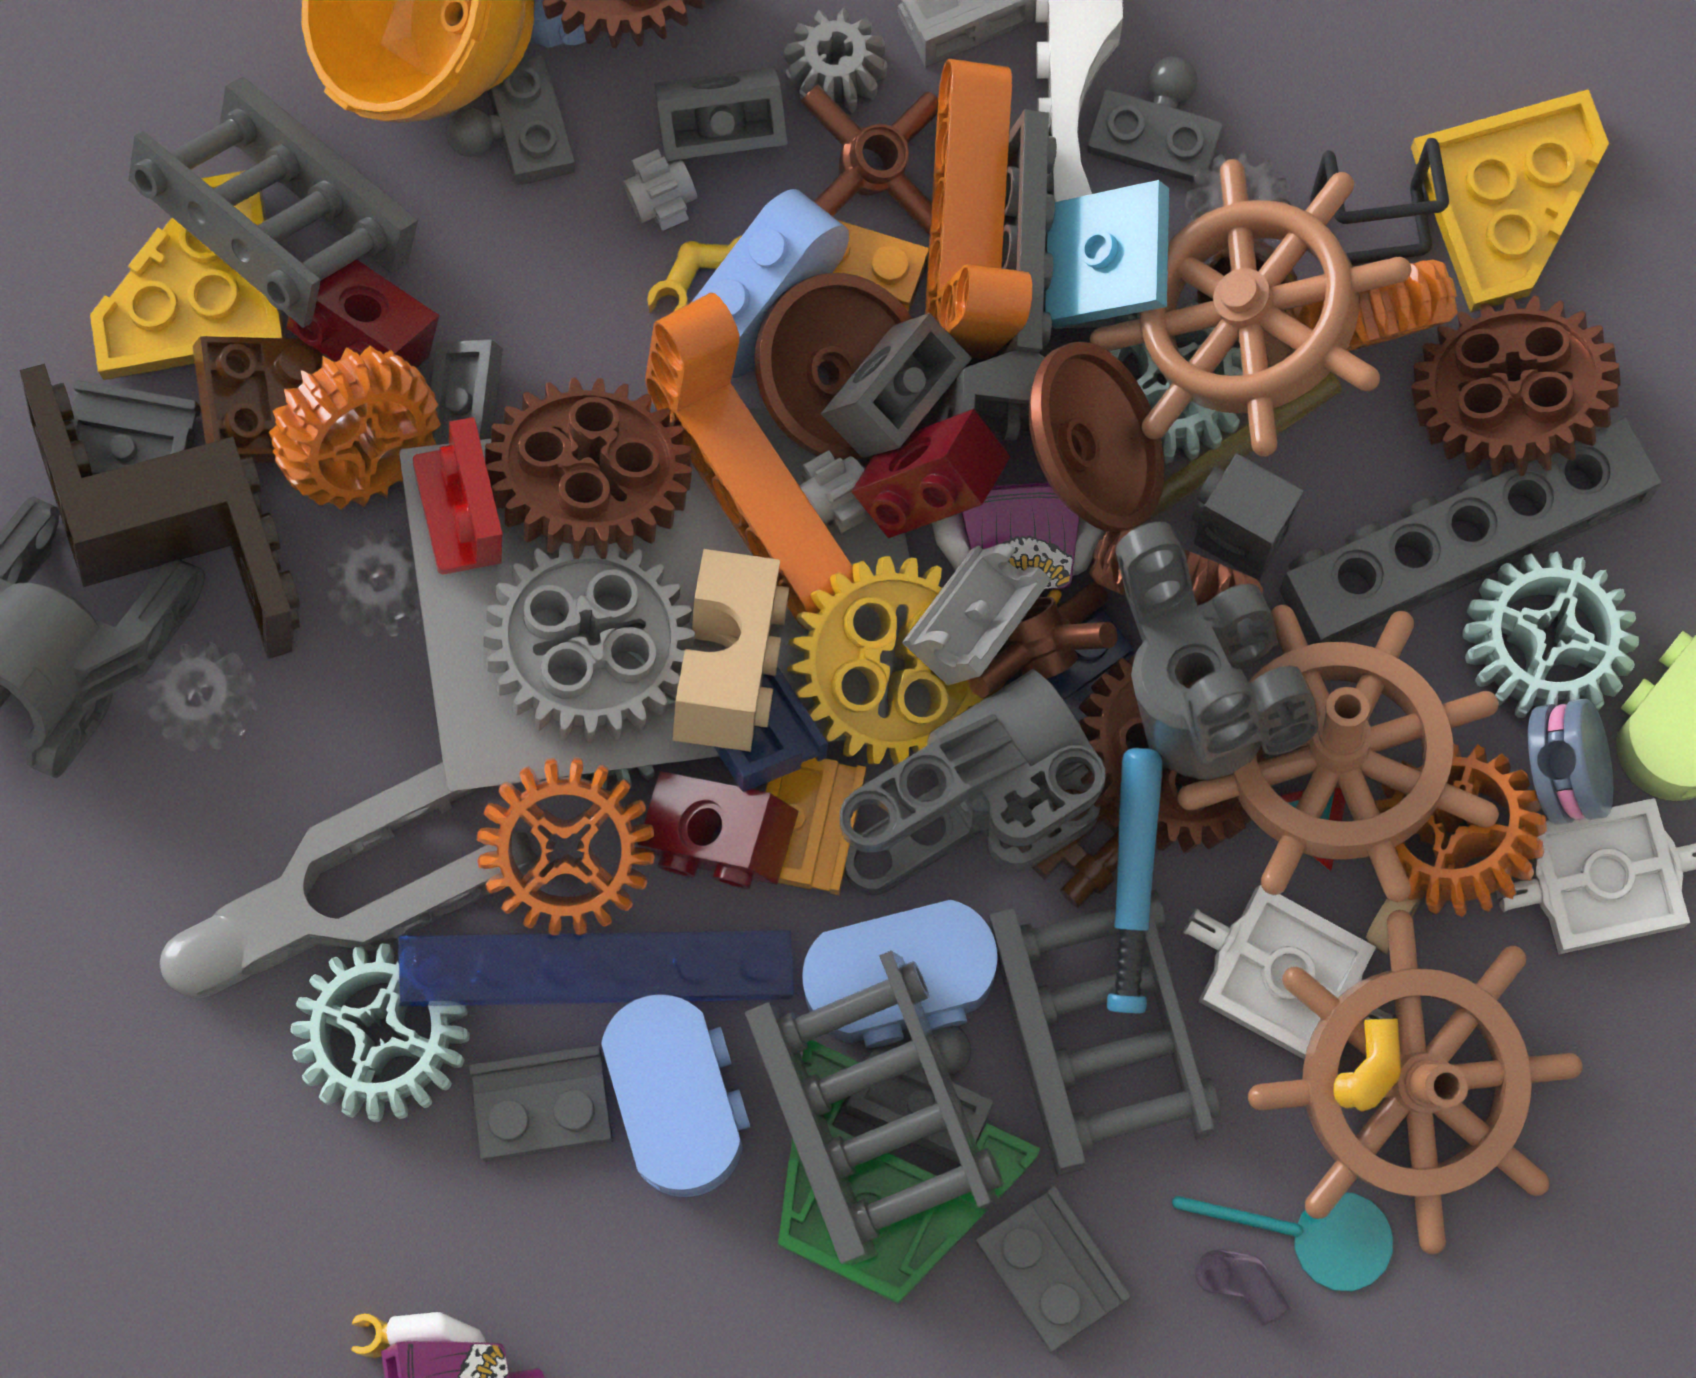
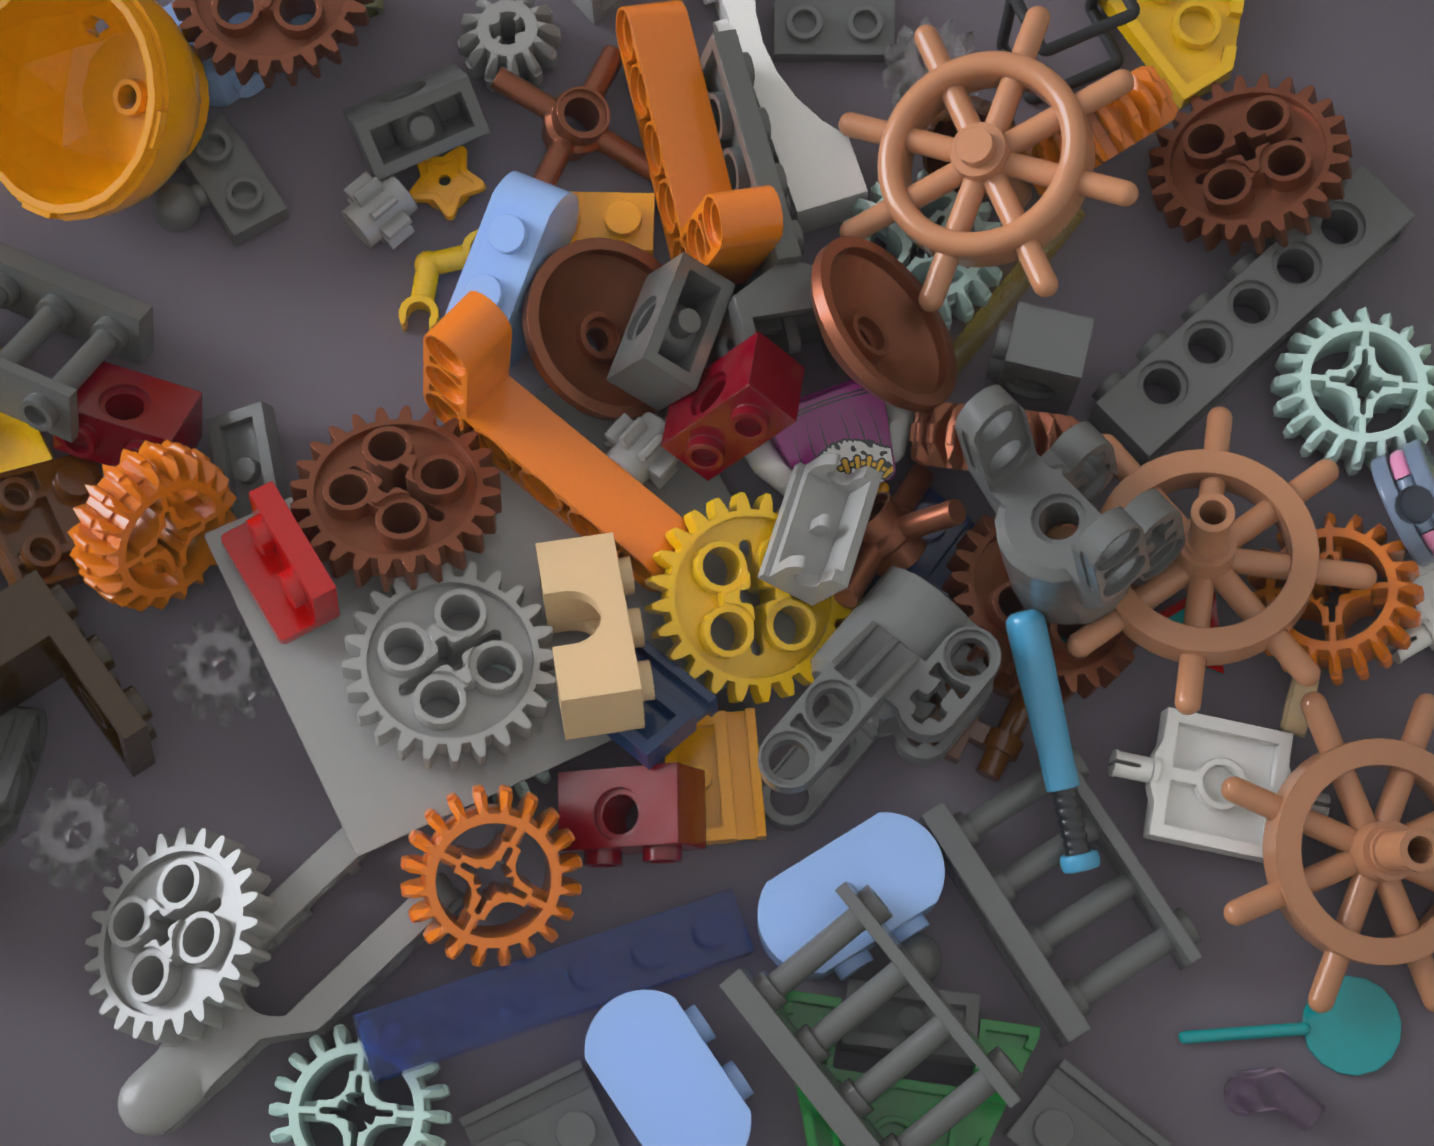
camera: 20 degrees left, 0 degrees up
(264, 817) = (180, 937): none -> light grey gear
(736, 195) = (455, 194): none -> light orange plate
(1109, 254) = (836, 147): plate -> none
(1377, 1072) = (1344, 852): yellow arm -> none

